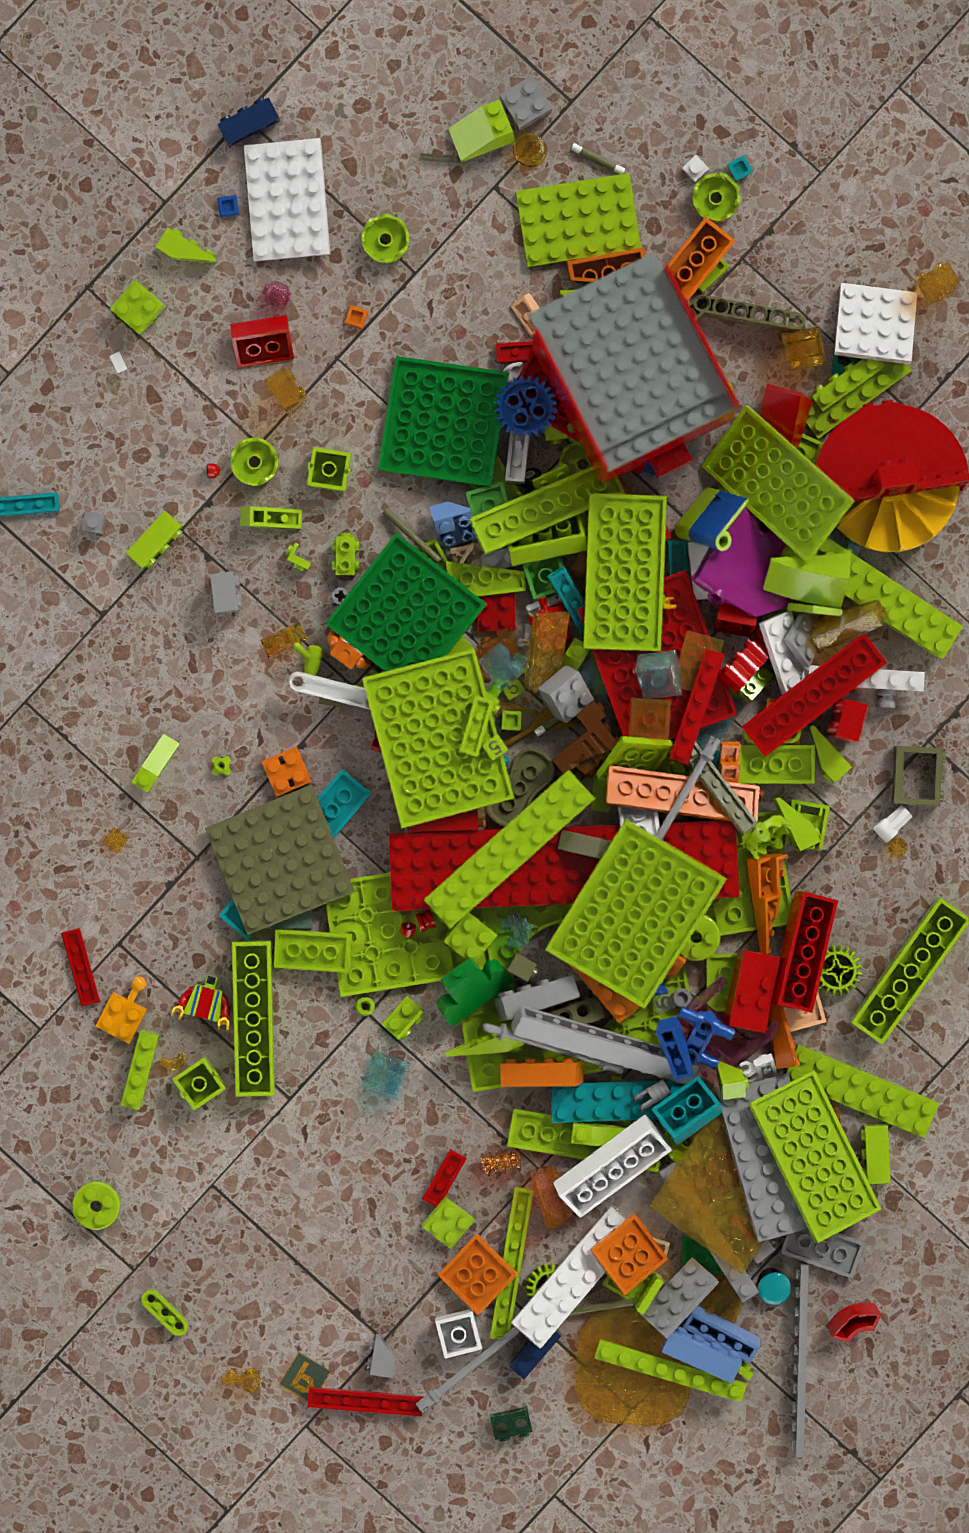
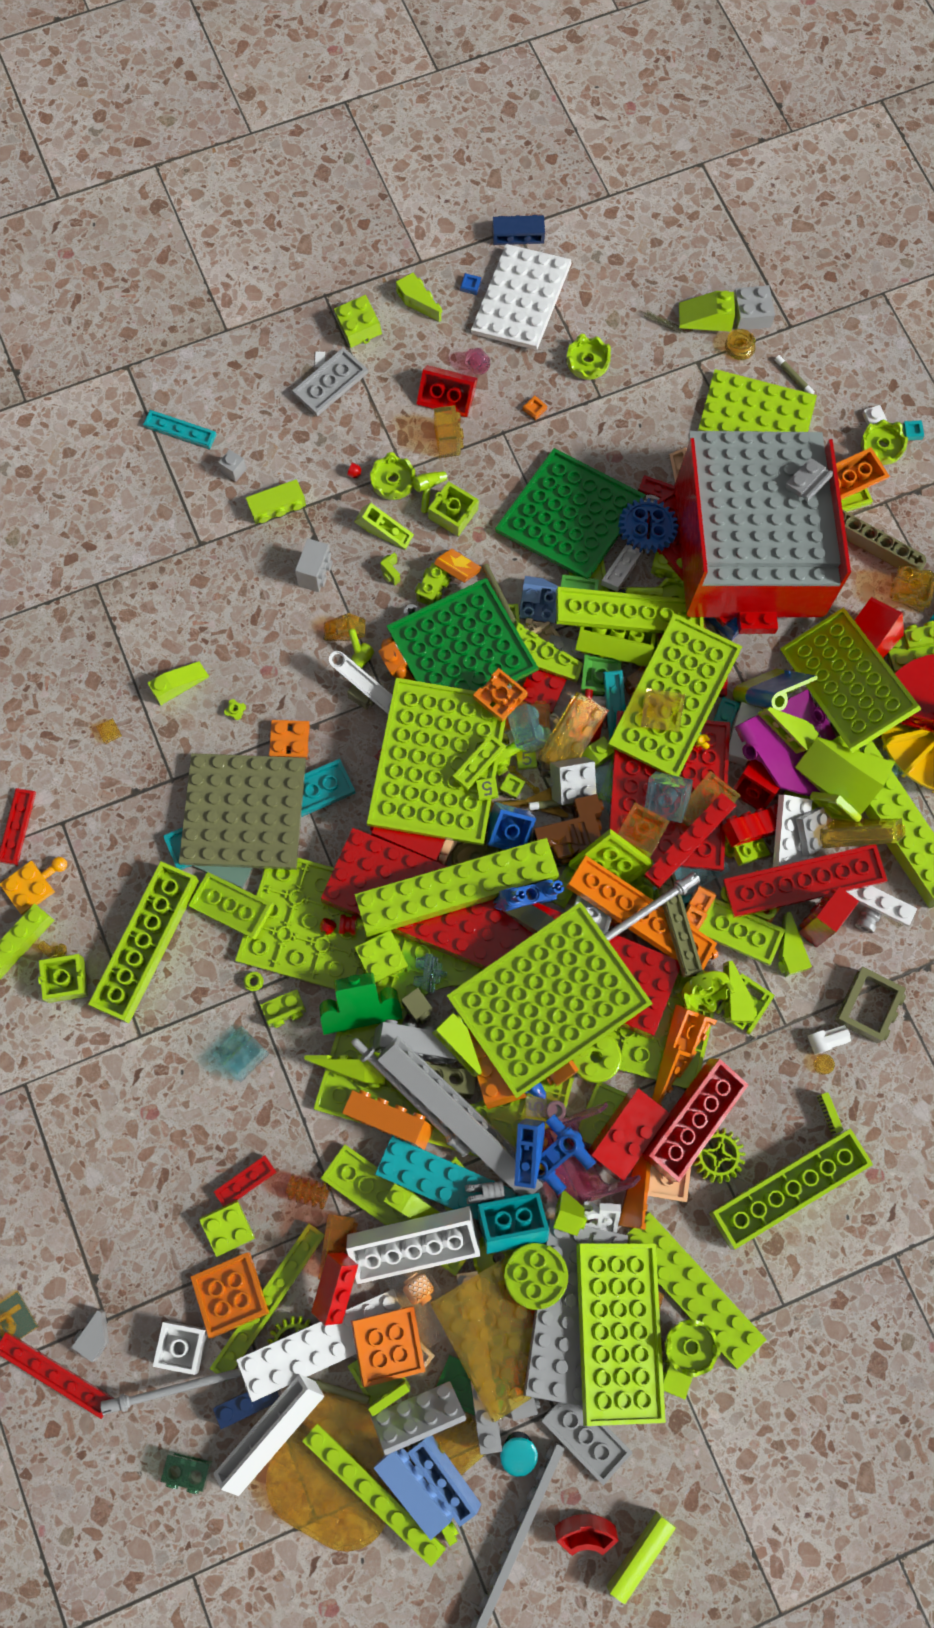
camera: 25 degrees right, 15 degrees down
(142, 385) = (330, 381): none -> light grey plate
(205, 1002) = (107, 907): torso -> none
(289, 452) = (425, 482): none -> lime piece
(361, 526) = (457, 565): none -> orange tile
(460, 651) = (497, 691): none -> orange brick
(529, 766) = (509, 826): none -> blue slope
(564, 1231) = (334, 1288): none -> red brick
(565, 1365) = (268, 1435): none -> white brick
(566, 839) = (539, 892): none -> blue piece
(571, 982) = (457, 1040): none -> lime slope
(619, 596) = (662, 710): none -> clear yellow slope
(632, 1198) = (418, 1289): none -> light nougat head
(662, 319) = (809, 479): none -> light grey plate
(726, 1144) = (536, 1276): none -> lime tile
(751, 559) = (793, 730): none -> lime slope
(892, 1144) = (707, 1347): none -> lime plate
(905, 1318) = (640, 1557): none -> lime brick
(922, 892) = (830, 1113): none -> lime tile

